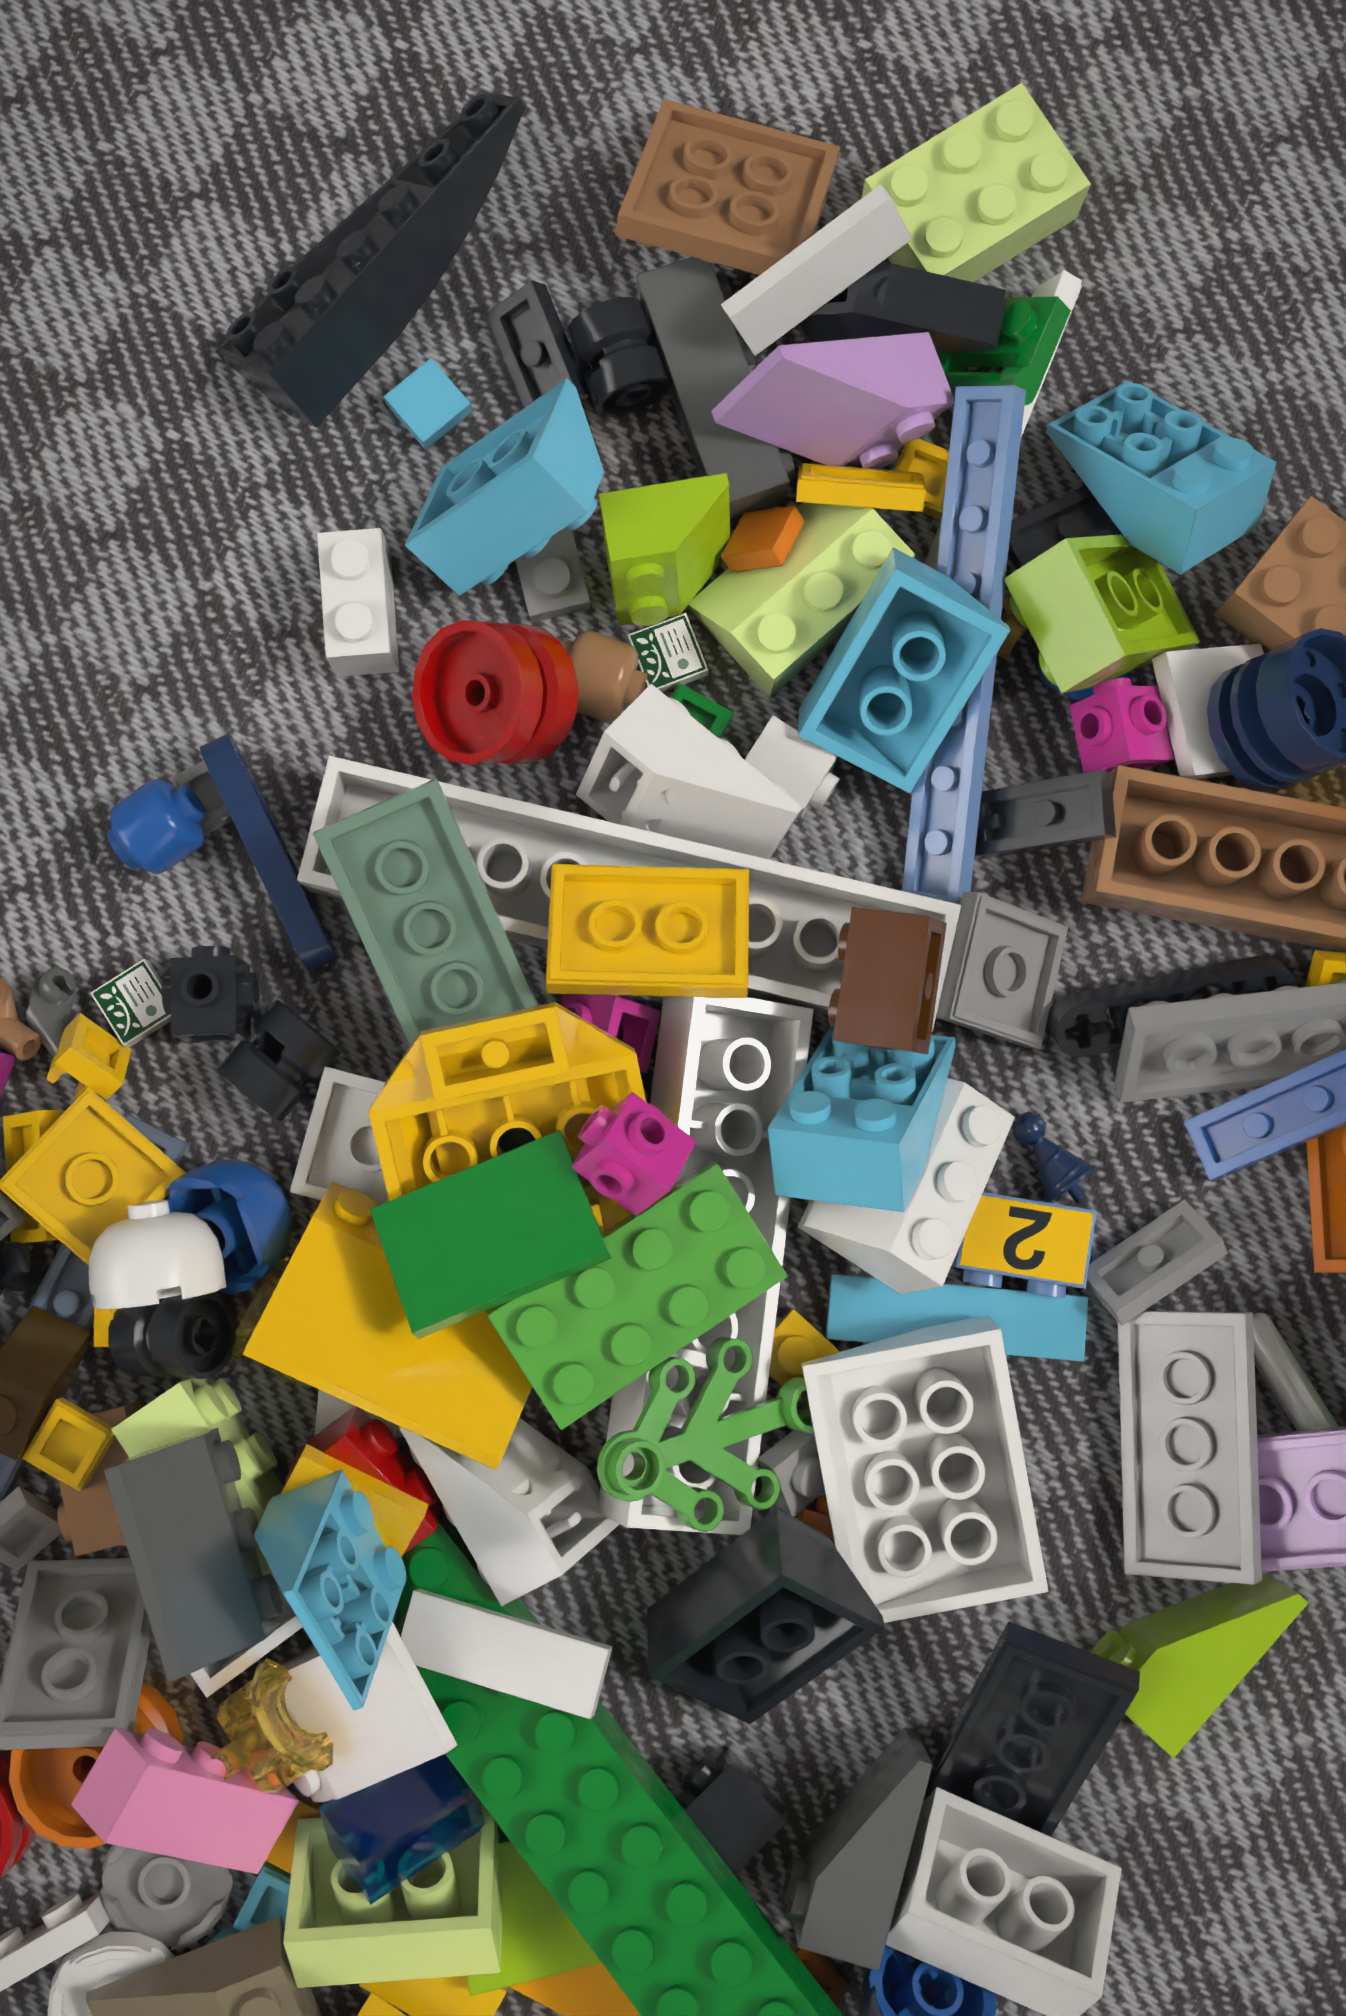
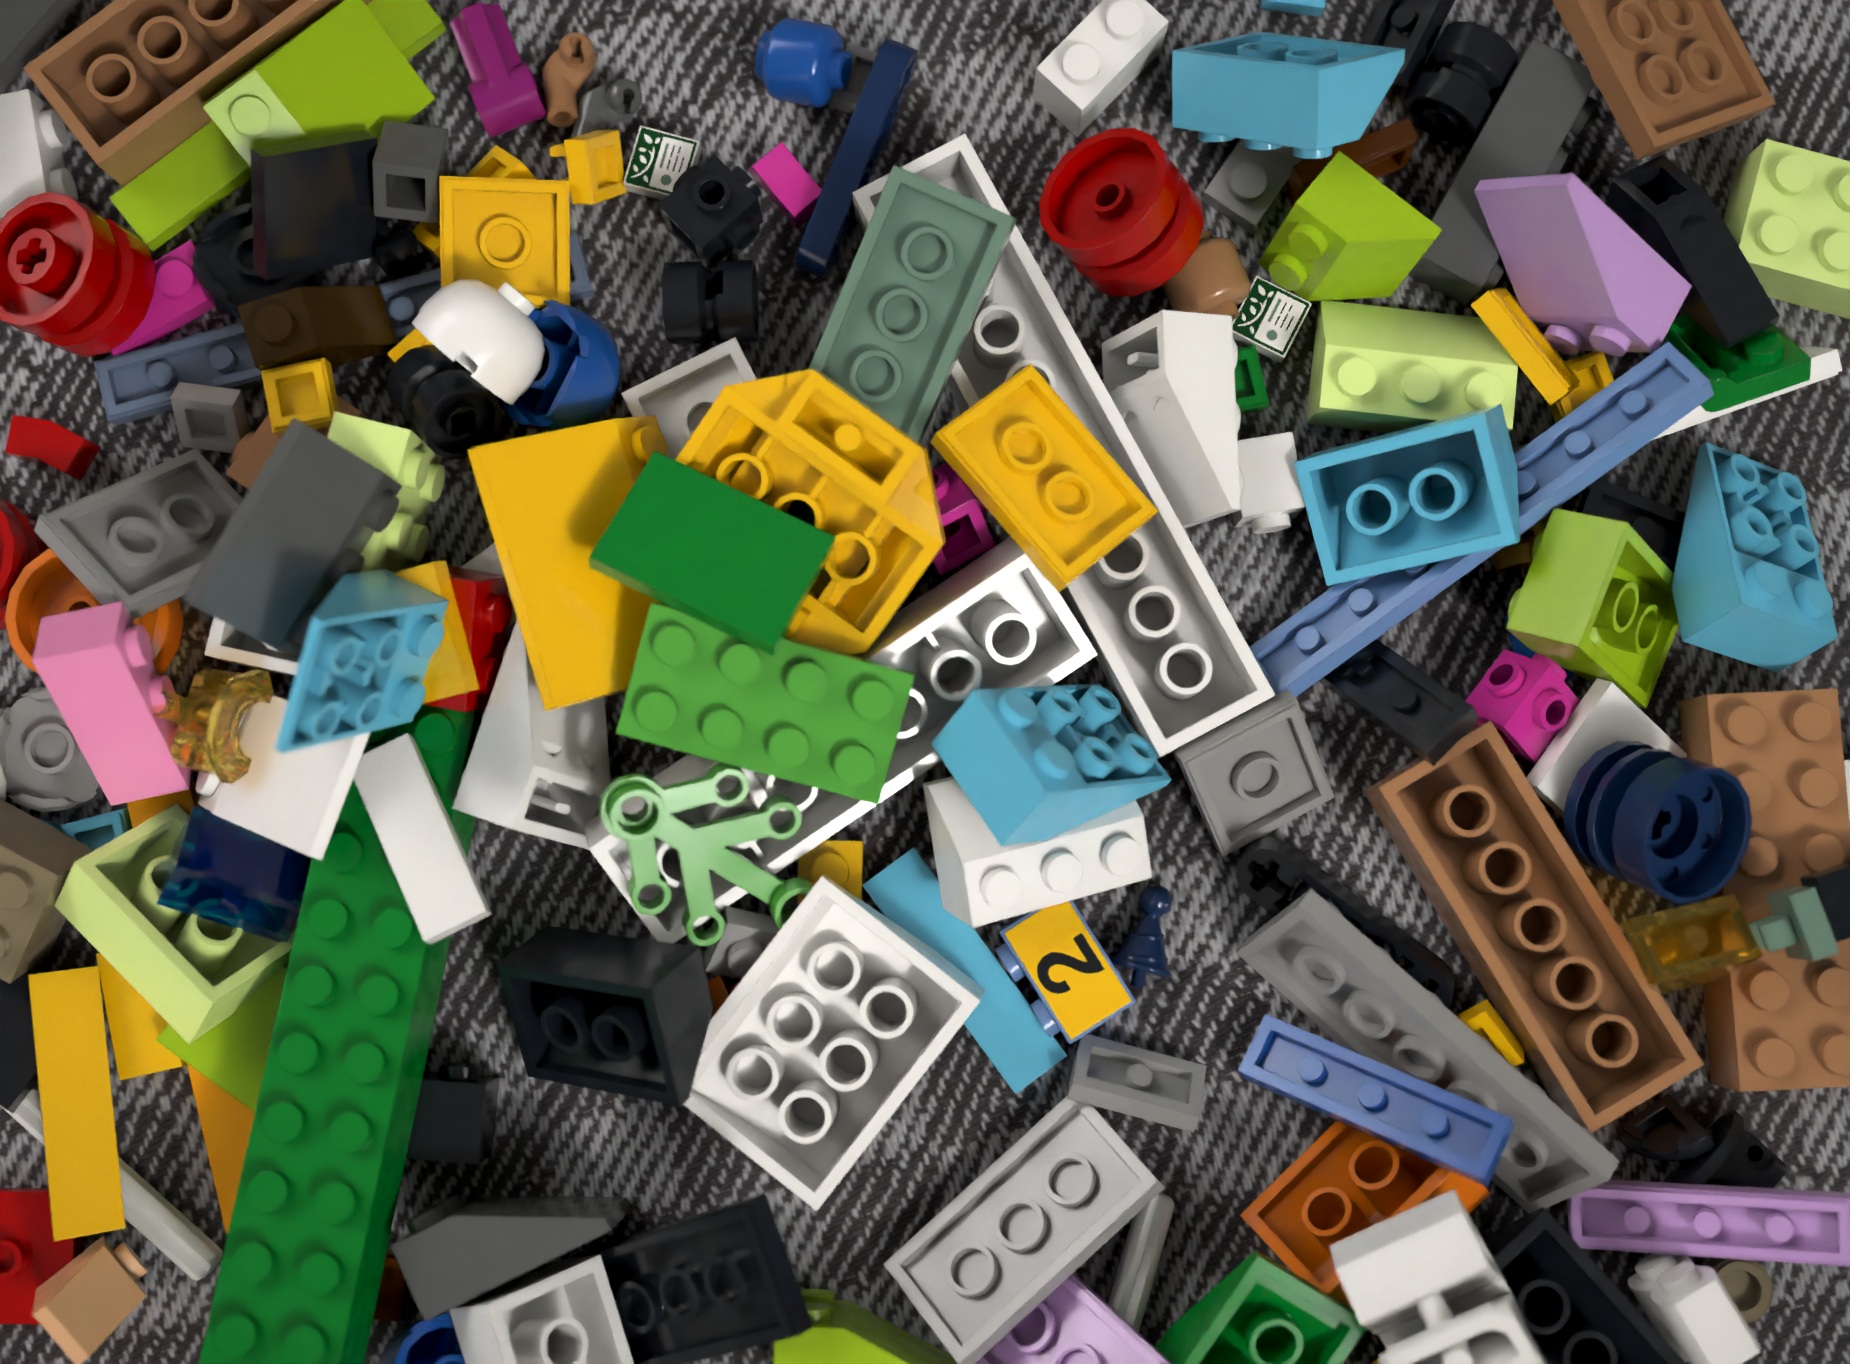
camera: 55 degrees right, 0 degrees up
(238, 921) = (787, 184): none -> dark pink piece
(620, 462) = (1376, 153): none -> reddish brown tile
(632, 1153) = (865, 603): dark pink brick -> none
(763, 539) = (1420, 309): orange tile -> none
(817, 270) = (1662, 161): white tile -> none
(887, 980) = (1167, 685): reddish brown brick -> none

